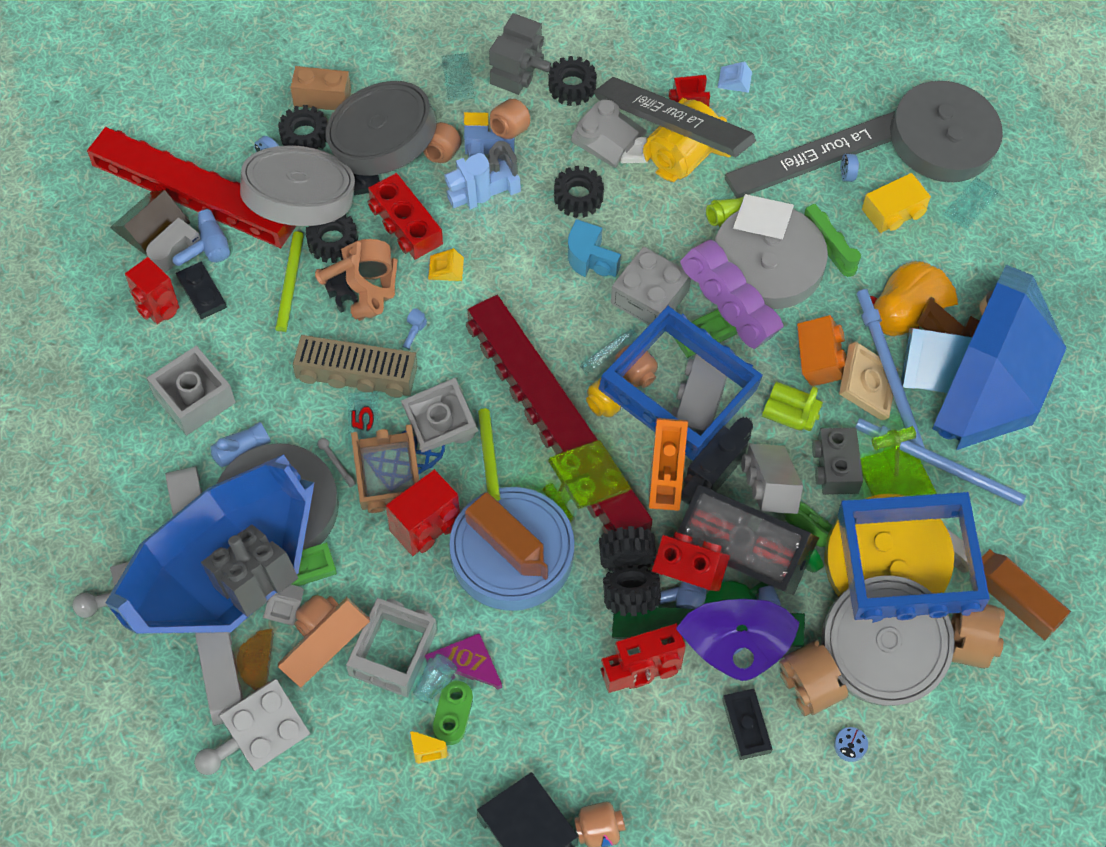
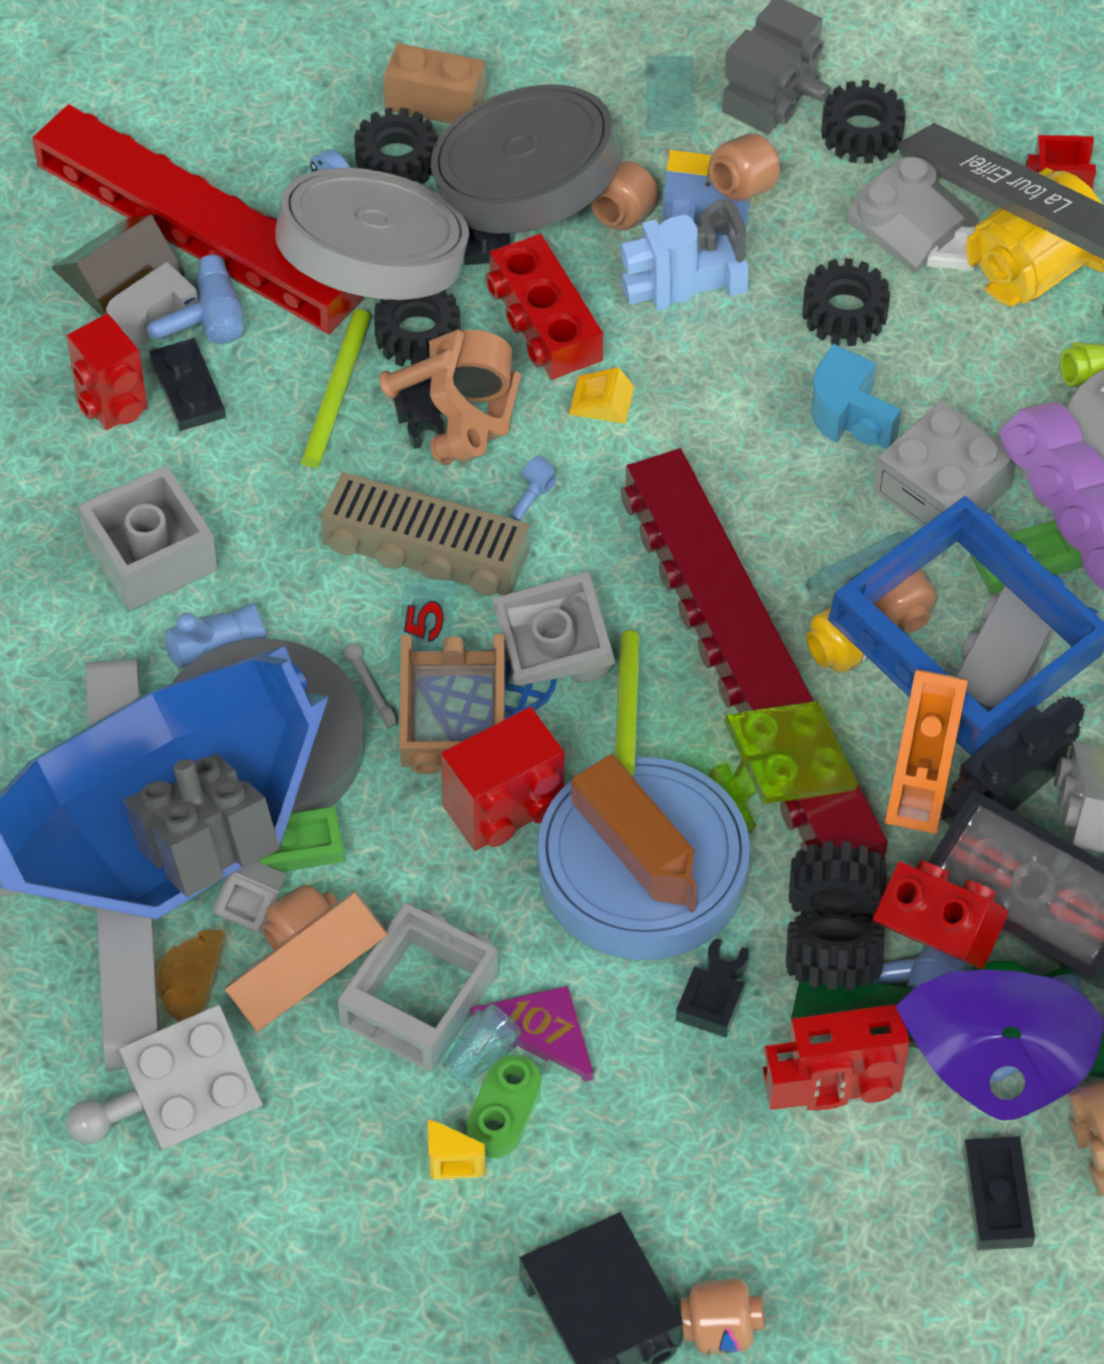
camera: 10 degrees right, 5 degrees down
(564, 626) = (713, 995): none -> black plate

